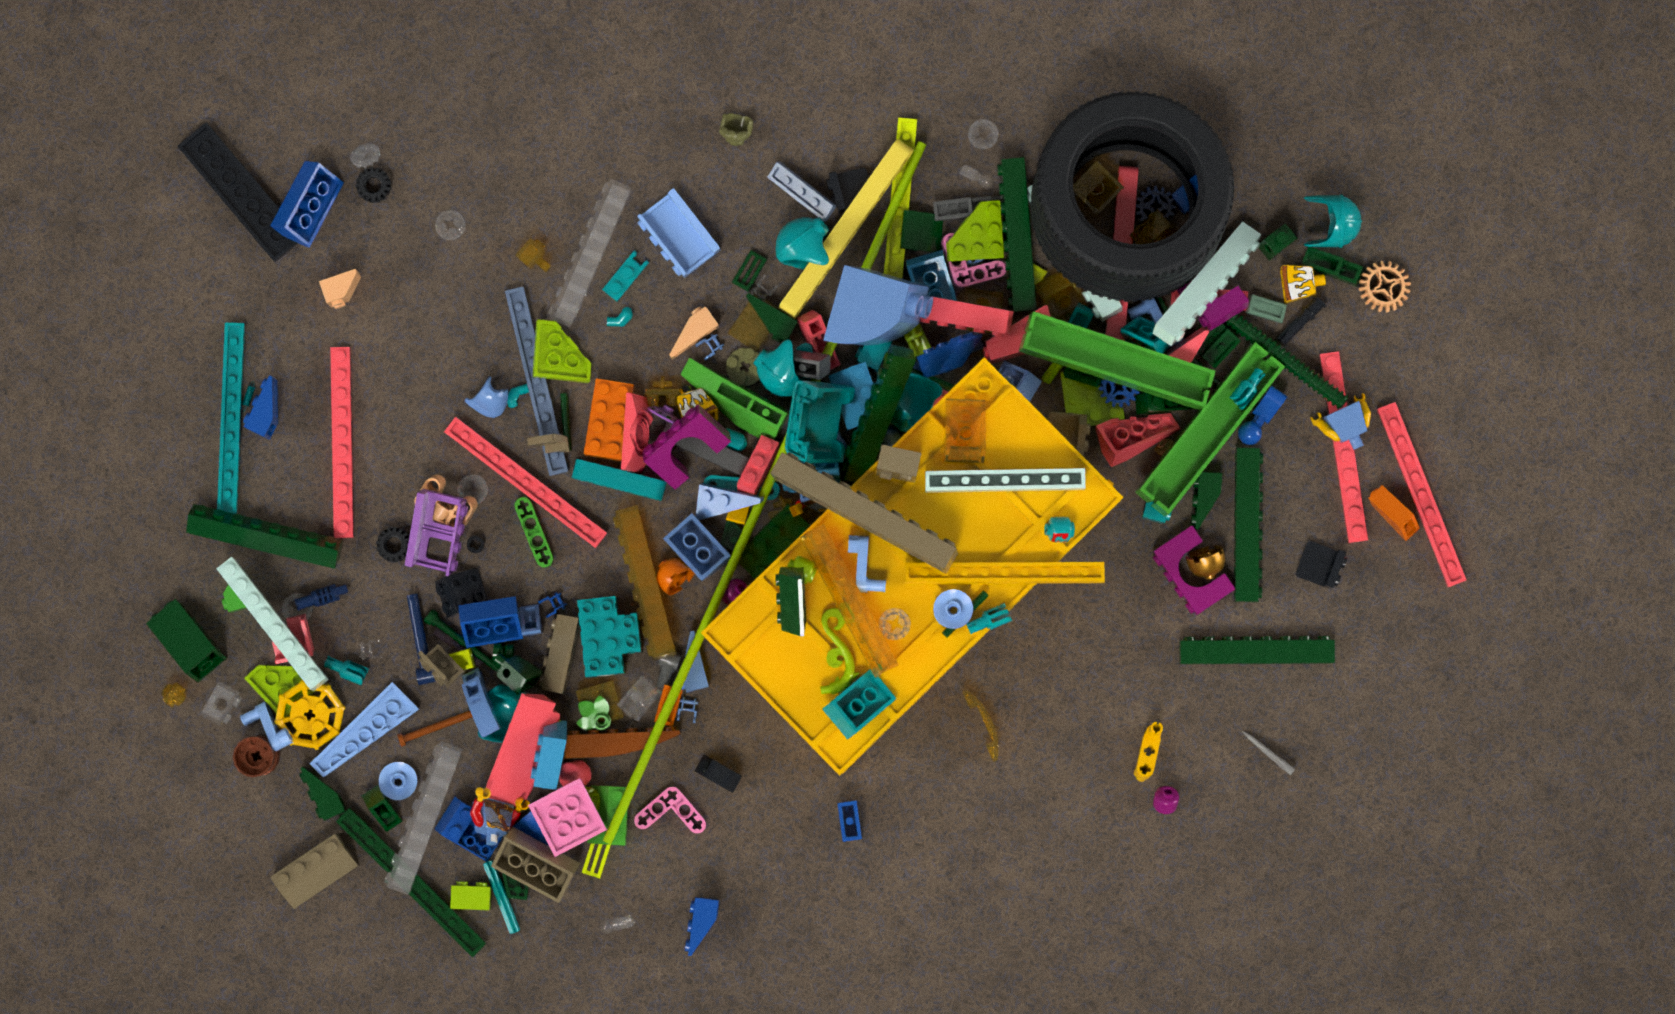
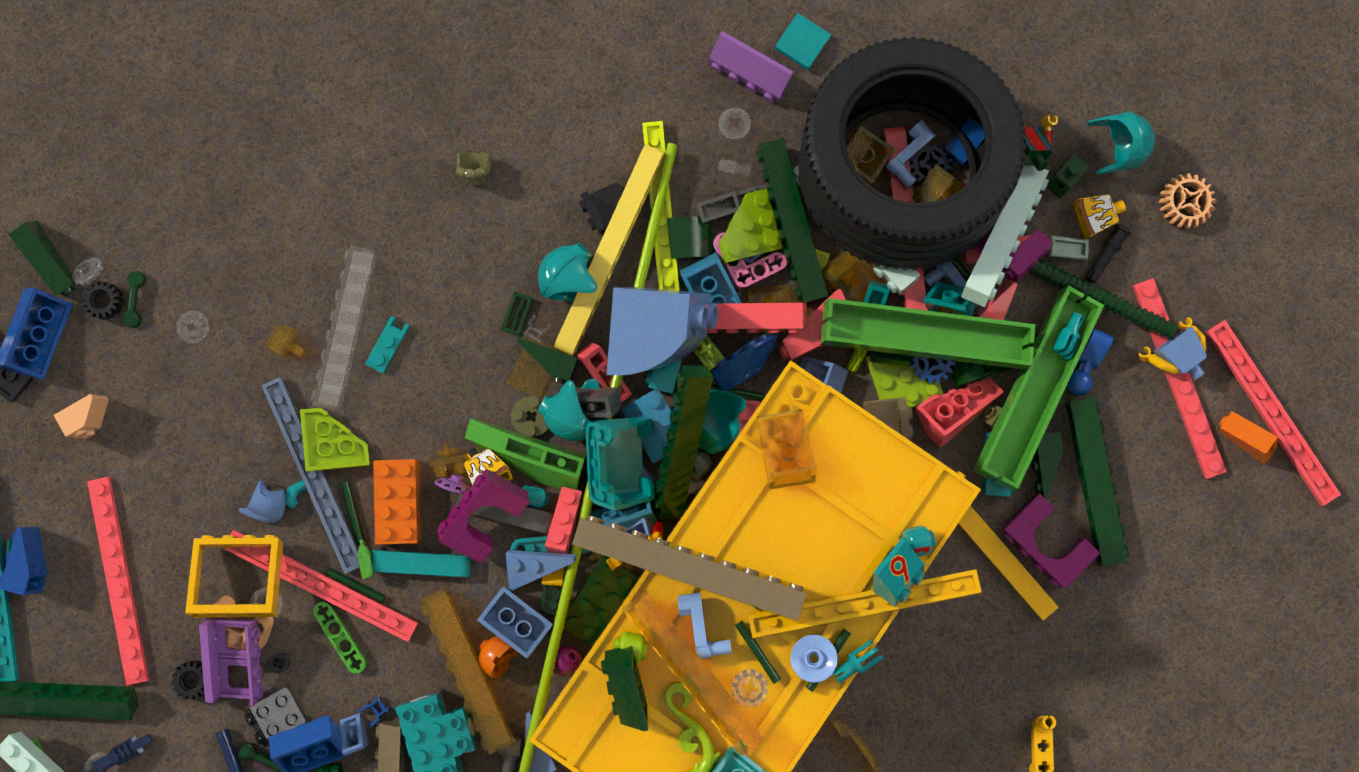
camera: 10 degrees left, 0 degrees up
(329, 137) = (43, 257): none -> dark green slope
(396, 206) = (130, 317): none -> dark green bar
(450, 486) = (242, 610): none -> yellow window
(552, 443) = (340, 539): dark tan slope -> none
(556, 489) = (355, 585): none -> dark green bar
(570, 467) = (365, 561): none -> bright green piece
(622, 319) = (391, 392): teal arm -> none
(635, 433) = (426, 510): coral slope -> none
(678, 234) = (434, 290): light blue panel -> none
(696, 328) = (471, 387): light nougat slope -> none
(719, 346) = (492, 392): medium blue piece -> none
(801, 191) = (555, 219): plate -> none
(898, 464) = (720, 506): dark tan brick -> none
(907, 596) = (757, 651): none -> dark green bar
(1005, 480) = (844, 498): light aqua brick -> none
(1007, 87) = (750, 67): none -> medium lavender slope
(1036, 550) = (898, 574): none -> teal slope
(1061, 70) = (802, 41): none -> teal slope
(1145, 574) = (1007, 564): none -> yellow tile
(1150, 181) = (922, 136): none -> light blue beam
(1206, 562) = (1062, 529): pearl gold cylinder -> none
(1217, 345) = (1026, 296): dark green slope -> none
(1251, 207) = (1039, 143): none -> torso
(1257, 651) = (1135, 615): dark green brick -> none
(1279, 761) = (1187, 730): light grey bar -> none
(1321, 565) = (1184, 508): black bracket -> none
(1333, 266) = (1129, 190): dark green slope -> none

